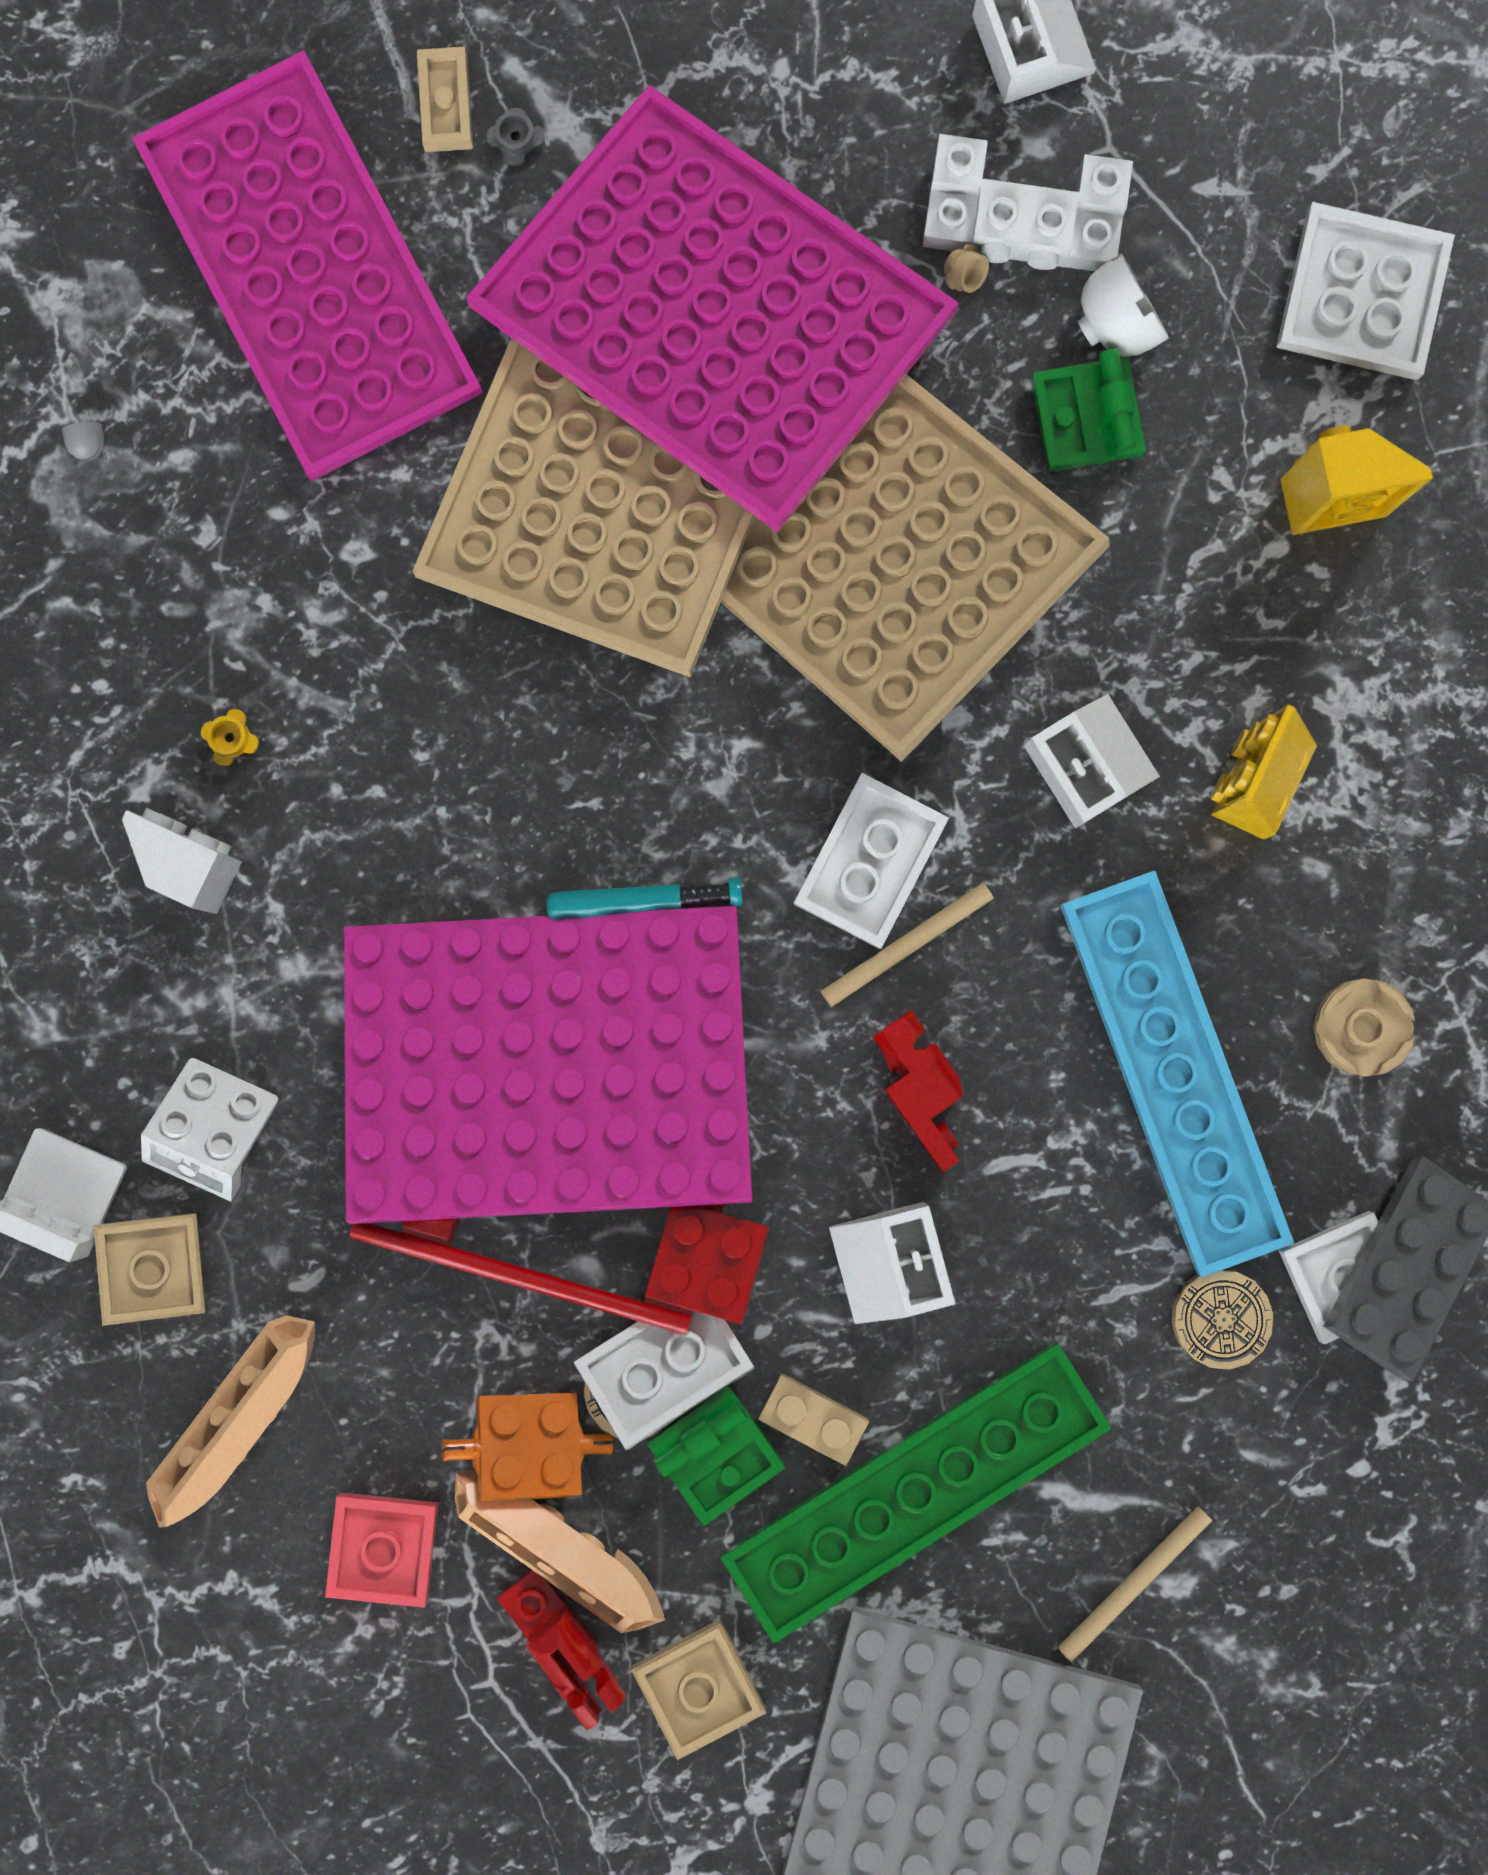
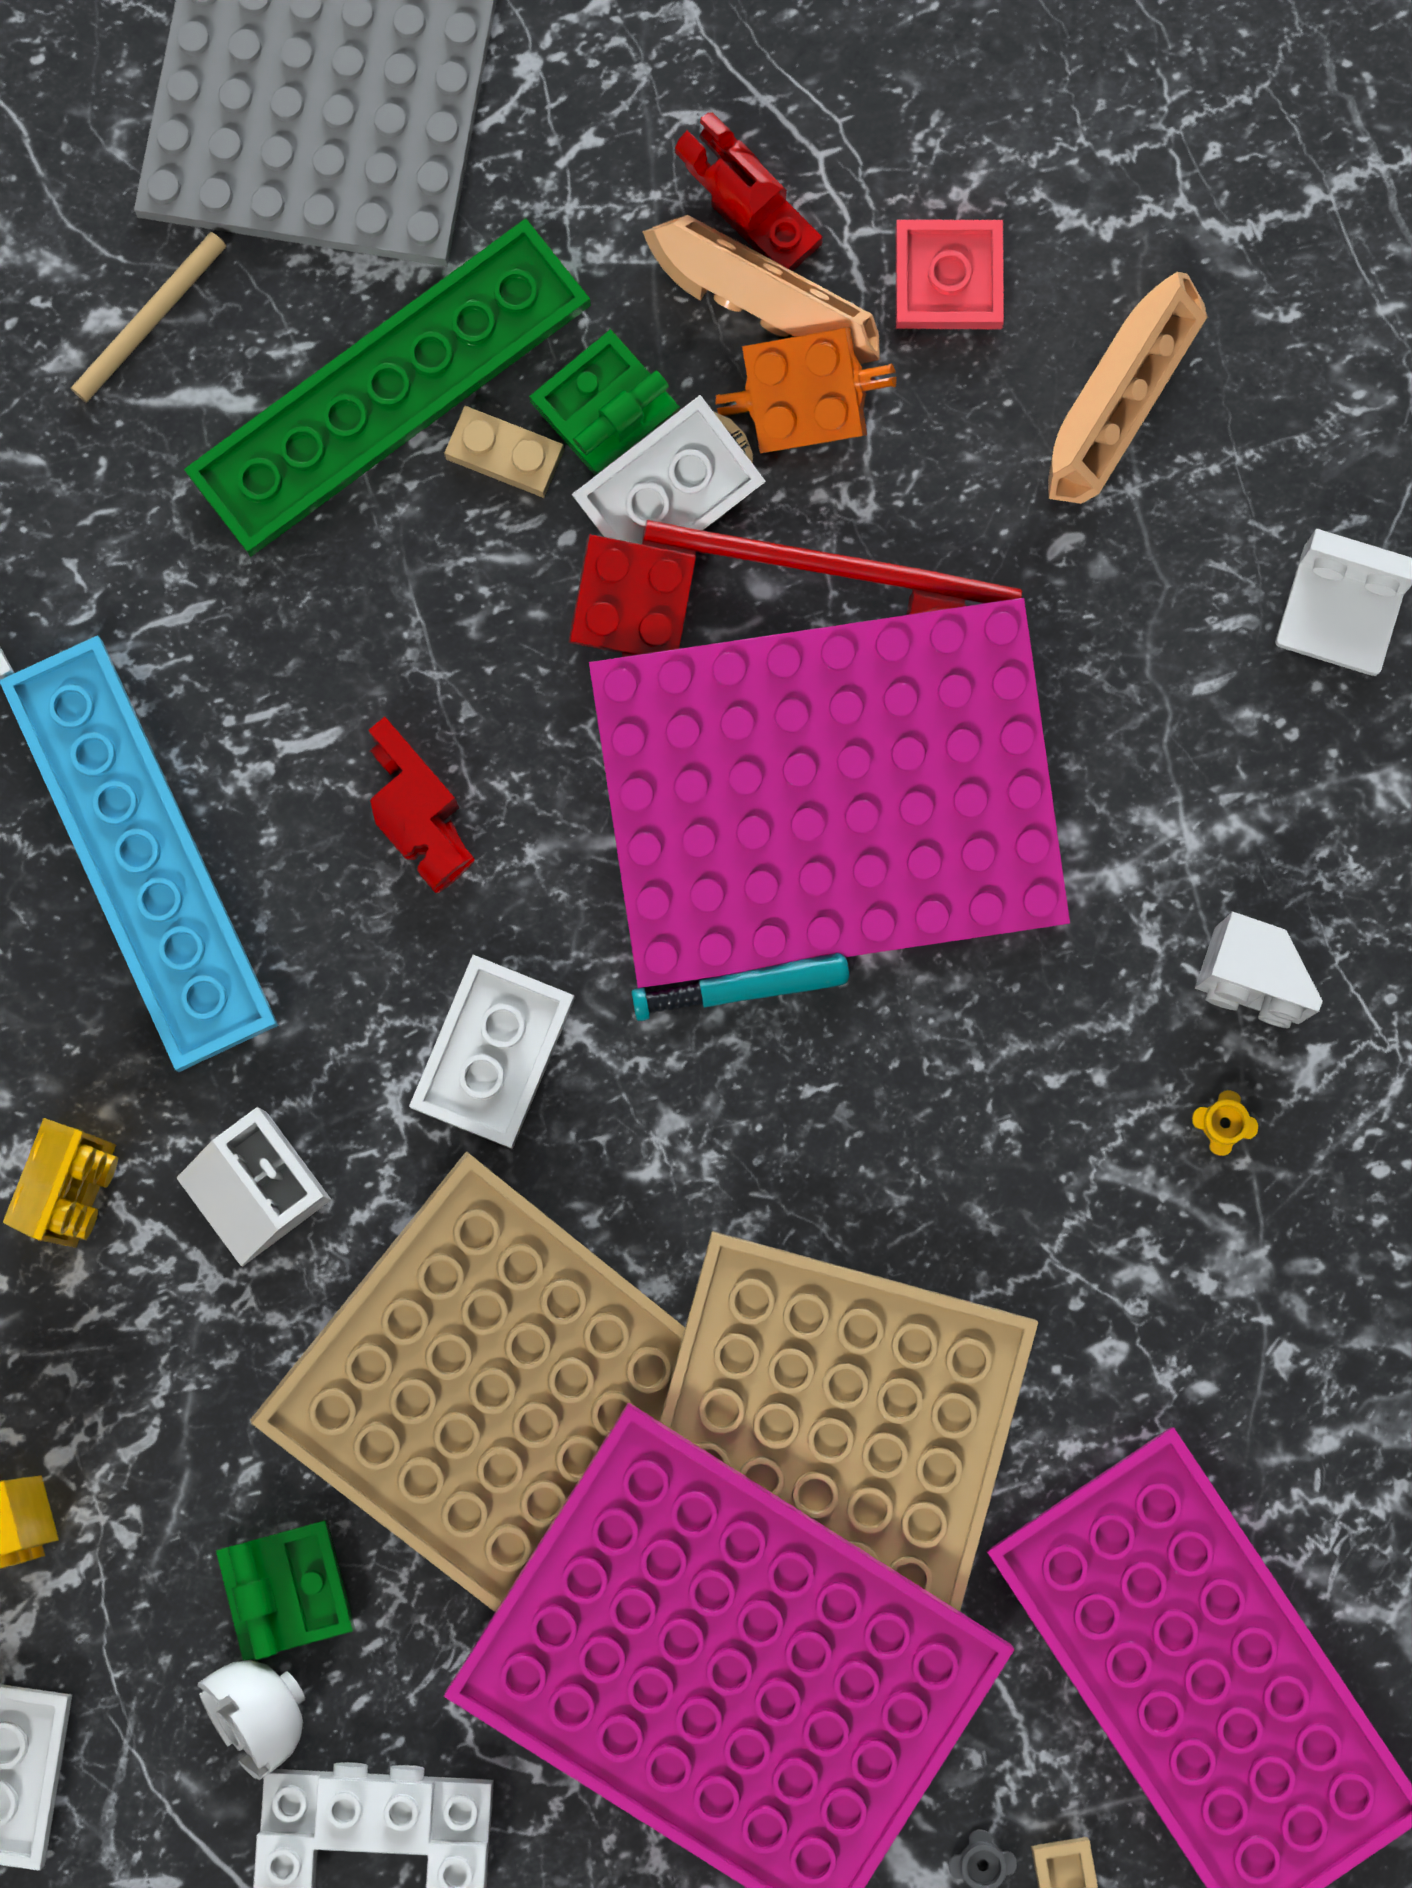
camera: 175 degrees right, 5 degrees down
(149, 1269) = (1234, 537): tan tile -> none
(207, 1128) = (1191, 693): white bracket -> none
(698, 1689) = (601, 168): tan tile -> none
(892, 1264) = (432, 616): white slope -> none
(907, 944) = (444, 965): tan bar -> none
(966, 269) = (439, 1751): tan plate -> none
(1222, 1319) = (71, 595): tan tile -> none

